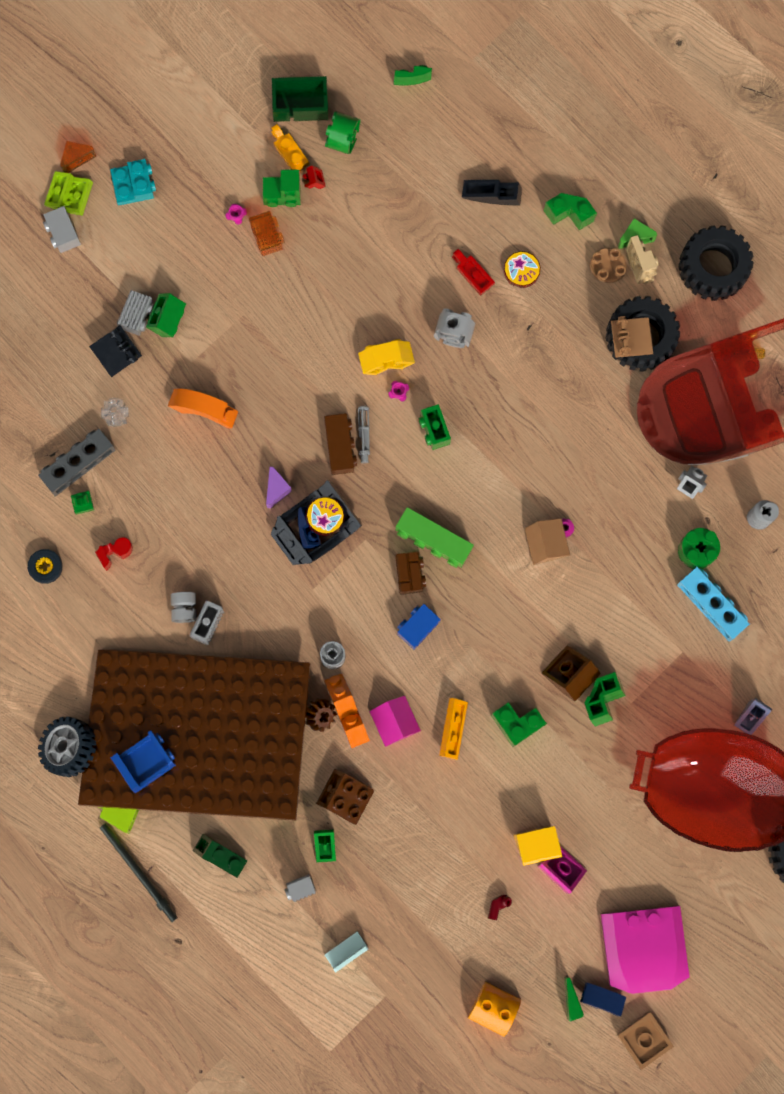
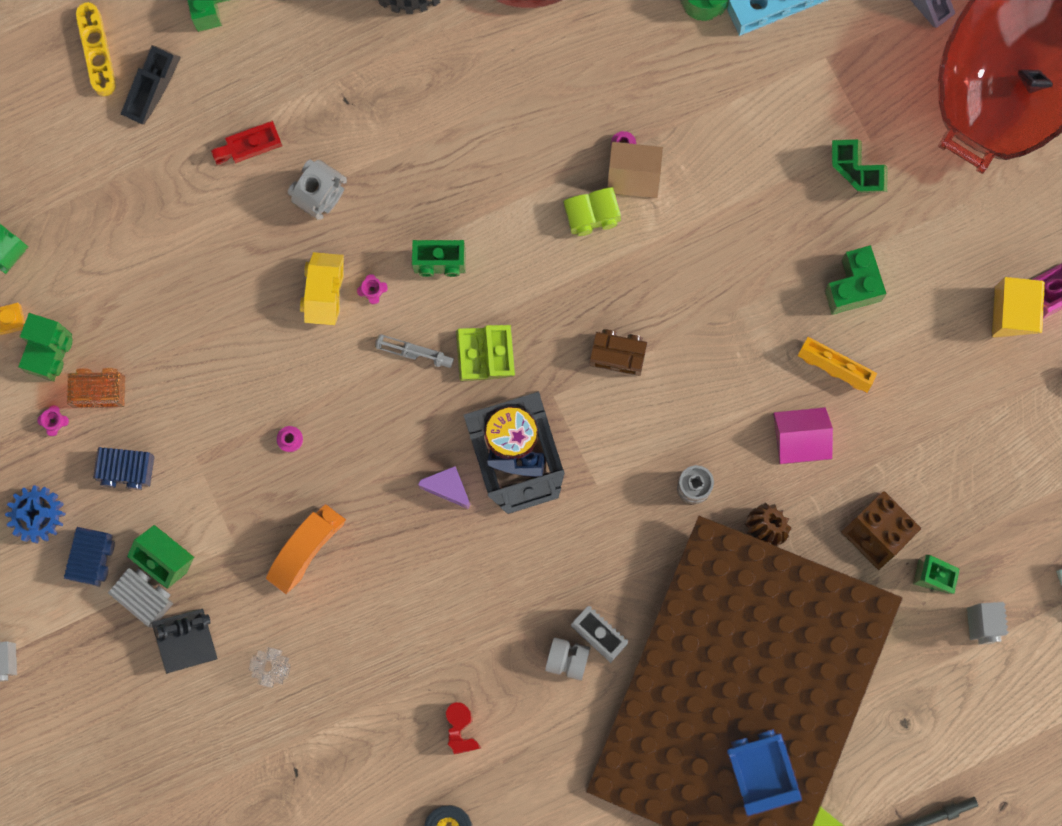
camera: 60 degrees left, 0 degrees up
(74, 472) = (341, 778): dark grey brick -> none
(82, 502) = (377, 751): green tile -> none
(151, 270) = (89, 557): none -> dark blue brick
(176, 222) = (35, 524): none -> blue gear
(219, 270) = (123, 467): none -> dark blue brick
(219, 856) = (910, 717): dark green bracket -> none
(275, 377) = (295, 444): none -> dark pink plate
(315, 178) = (43, 300): red tile -> none
(340, 444) = (417, 385): reddish brown brick -> none
(346, 710) = (771, 489): orange arch -> none
(379, 482) = (485, 353): none -> lime slope
(418, 626) = (692, 363): blue brick -> none
(433, 537) = (583, 306): bright green brick -> none
(504, 146) = (95, 49): none -> yellow beam
(506, 522) = (592, 211): none -> lime brick
(522, 269) = (267, 83): tile -> none
(571, 673) = (811, 196): reddish brown slope -> none
(716, 807) = (1034, 80): none -> black slope

